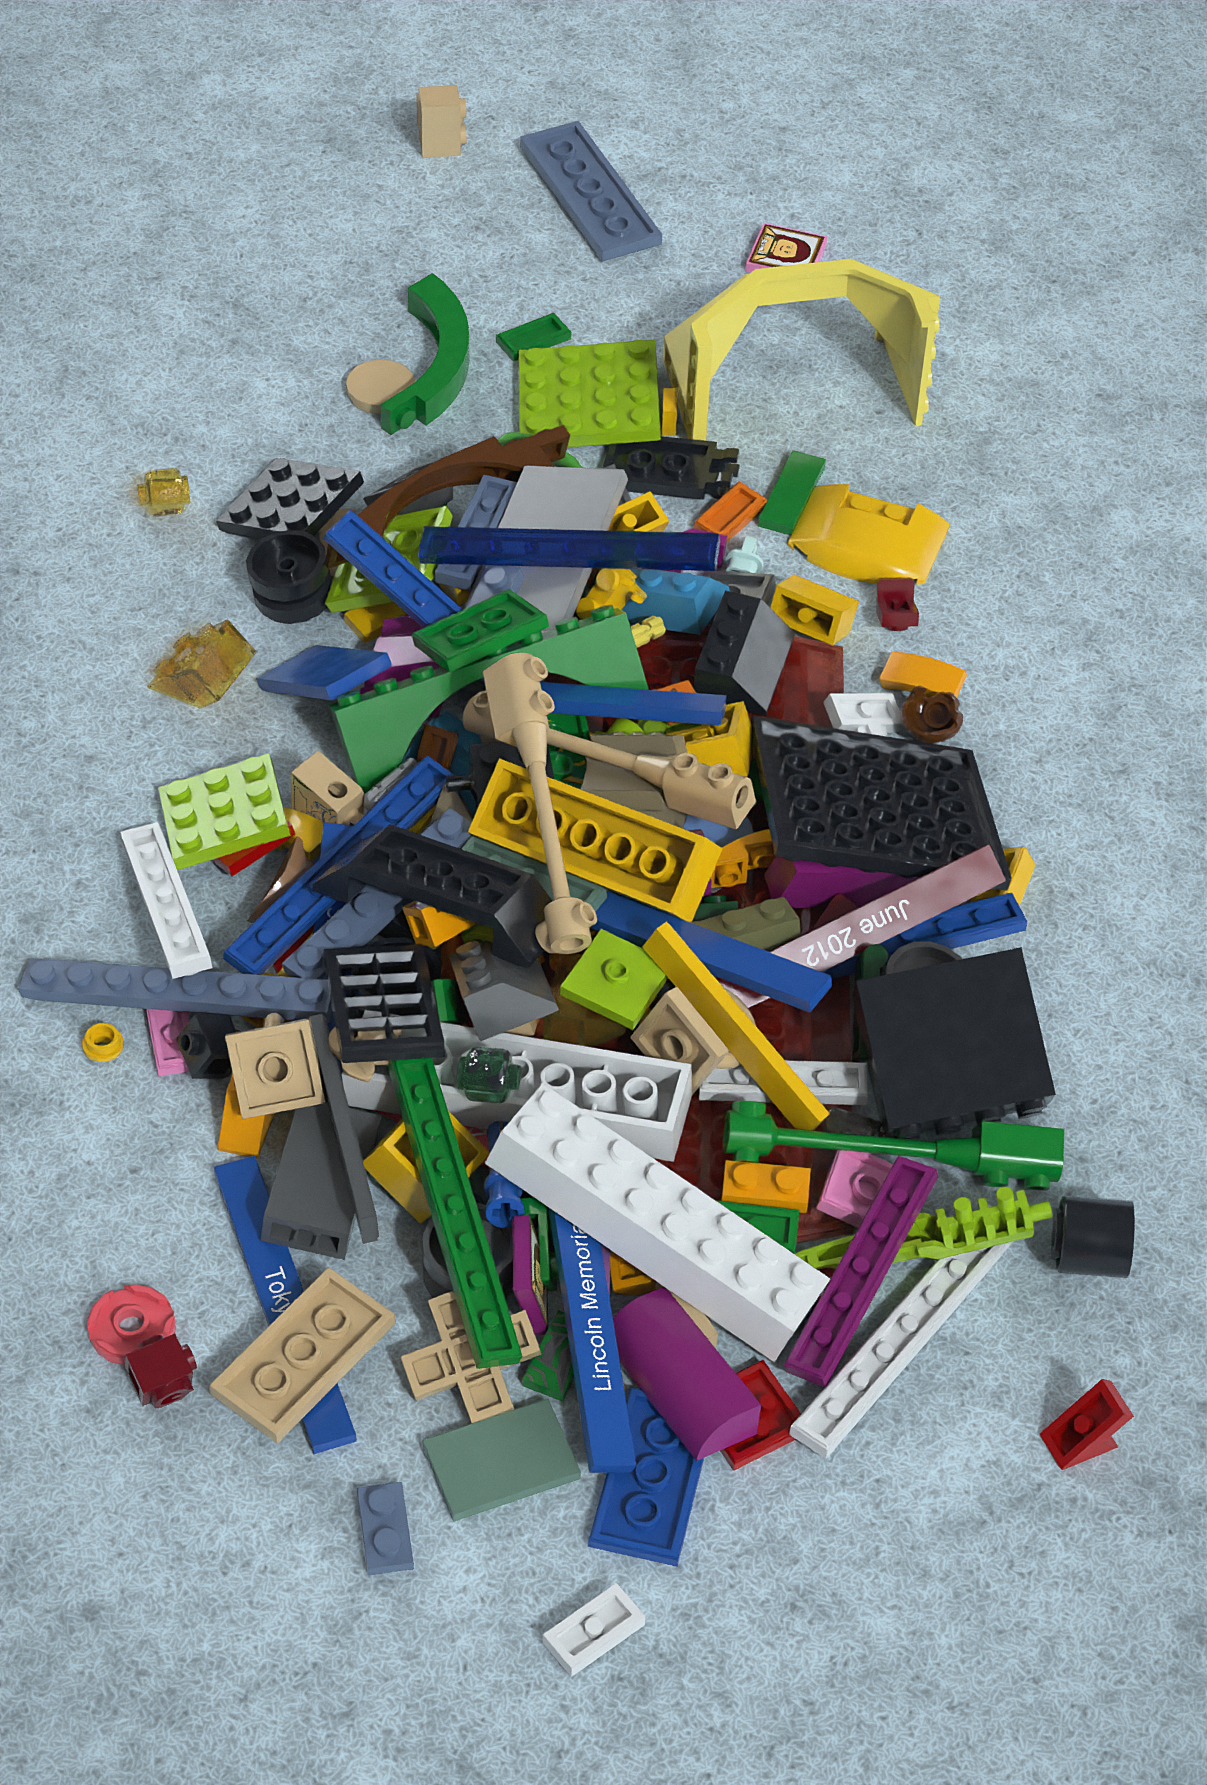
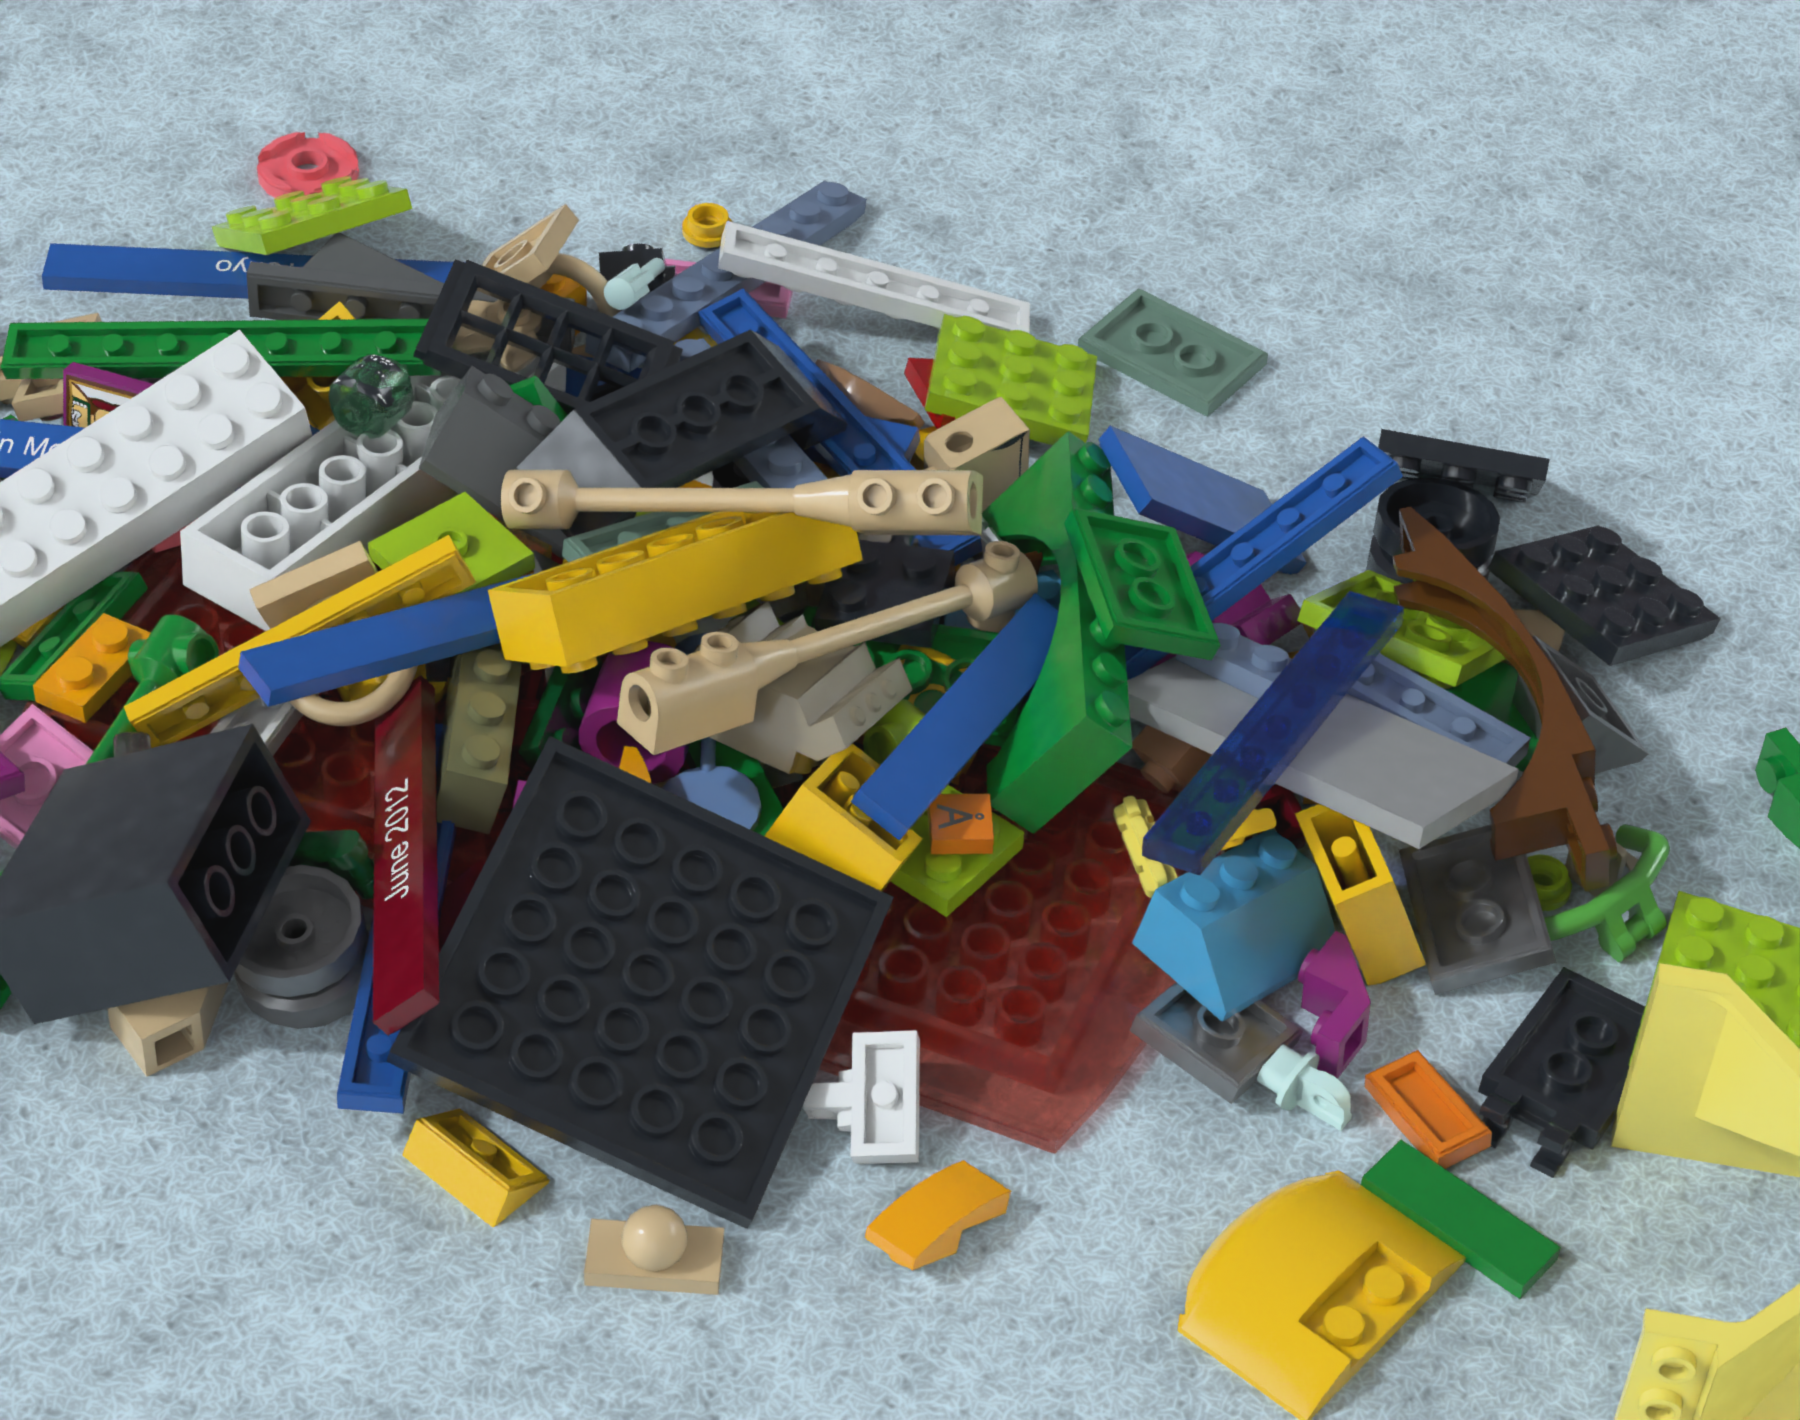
camera: 110 degrees right, 5 degrees down
(127, 756) = (1173, 352): none -> sand green tile
(161, 1370) = (220, 155): dark red brick -> none
(164, 492) = (1666, 480): clear yellow head -> none
(203, 665) = (1287, 427): clear yellow slope -> none
(220, 565) = (1509, 473): none -> black plate
(231, 1261) = (309, 217): none -> lime plate
(255, 1004) = (632, 284): none -> light aqua axle
(302, 1355) = (157, 246): tan plate -> none
(744, 653) = (1045, 951): black slope -> none
(814, 609) = (1140, 1113): yellow brick -> none
(896, 603) = (1112, 1242): dark red bracket -> none
(931, 718) = (834, 1173): reddish brown hair -> none
(1015, 787) = (654, 1253): none -> tan tile

